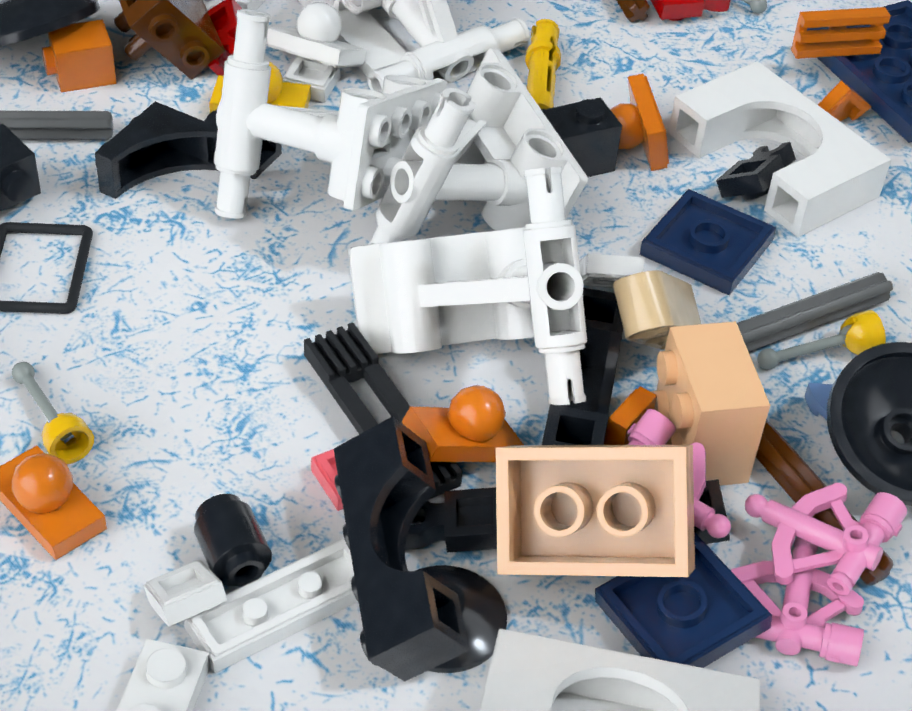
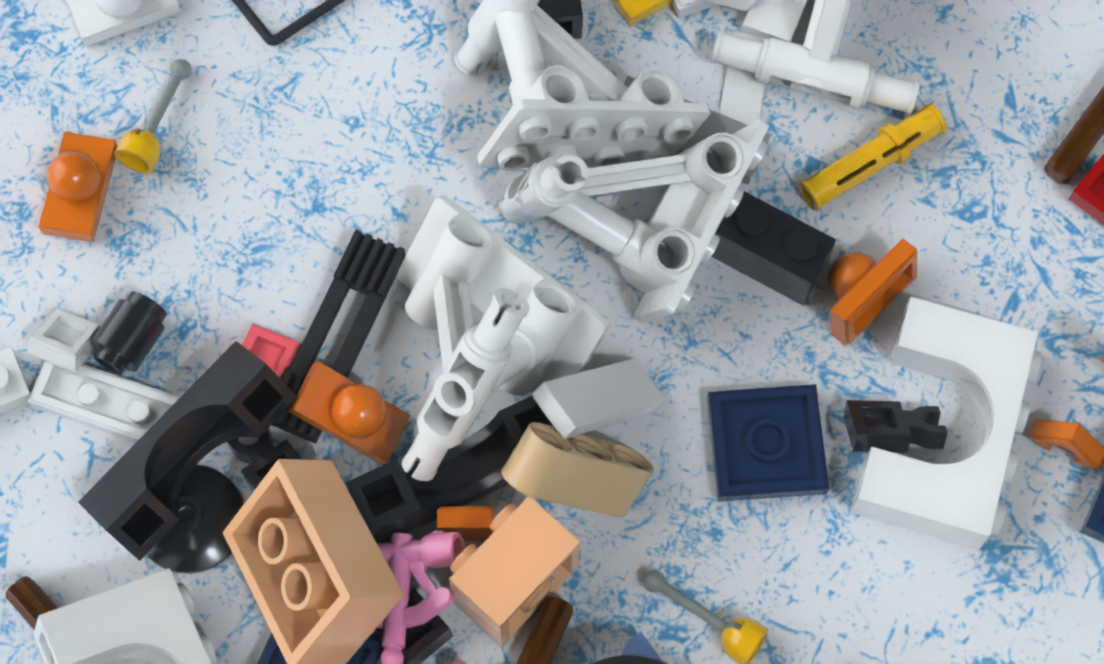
camera: 55 degrees right, 25 degrees up
(815, 310) = (733, 579): dark grey axle -> none

